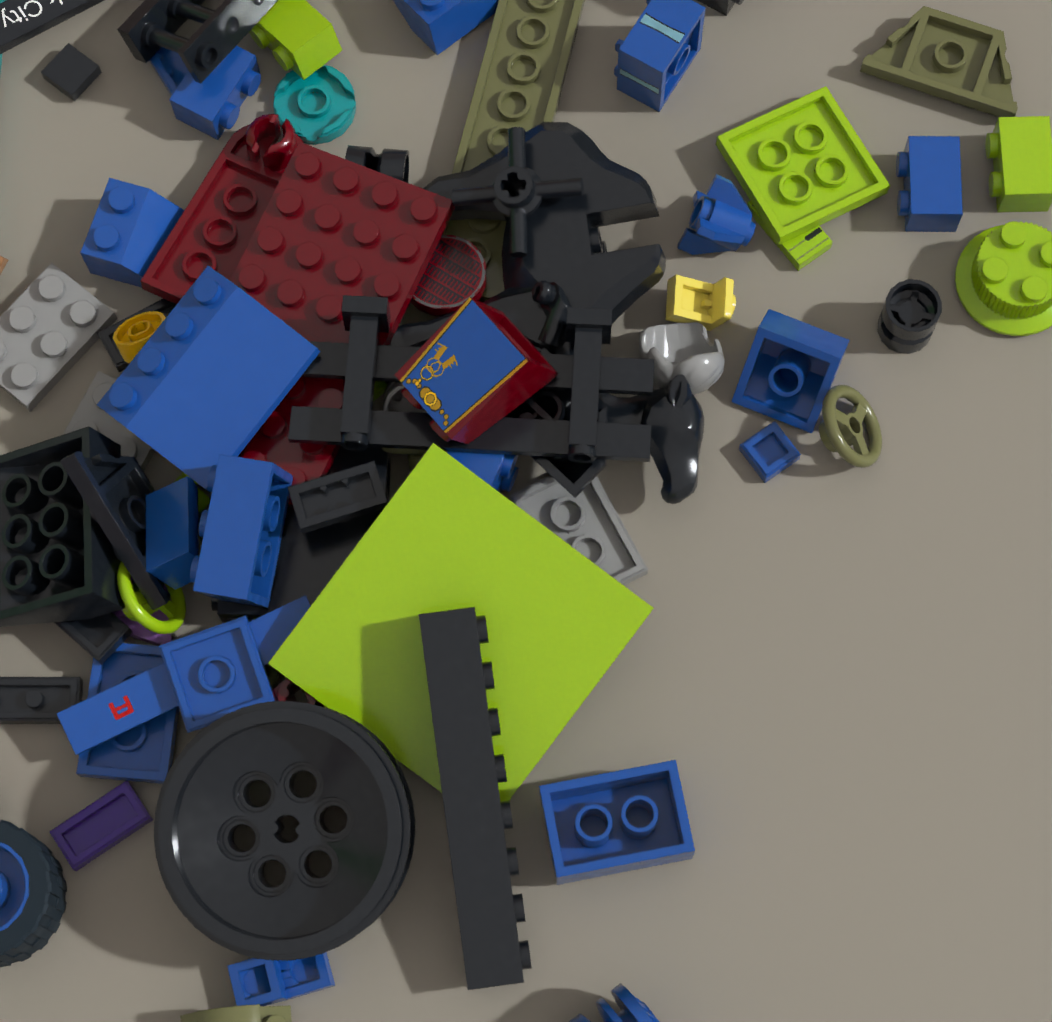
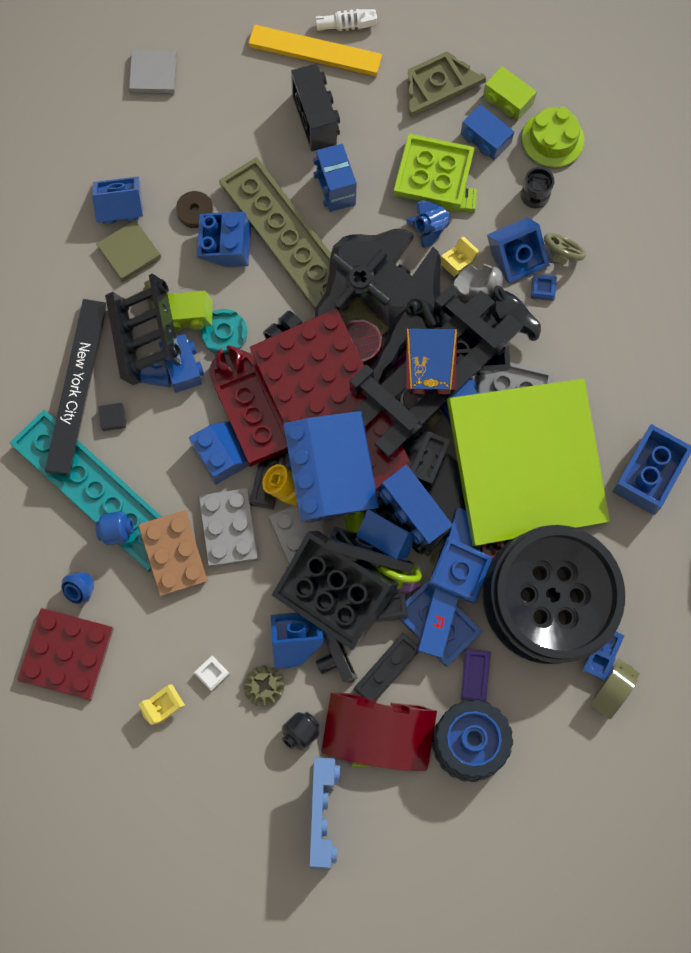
camera: 55 degrees left, 0 degrees up
(472, 798) = (600, 511): black brick -> none

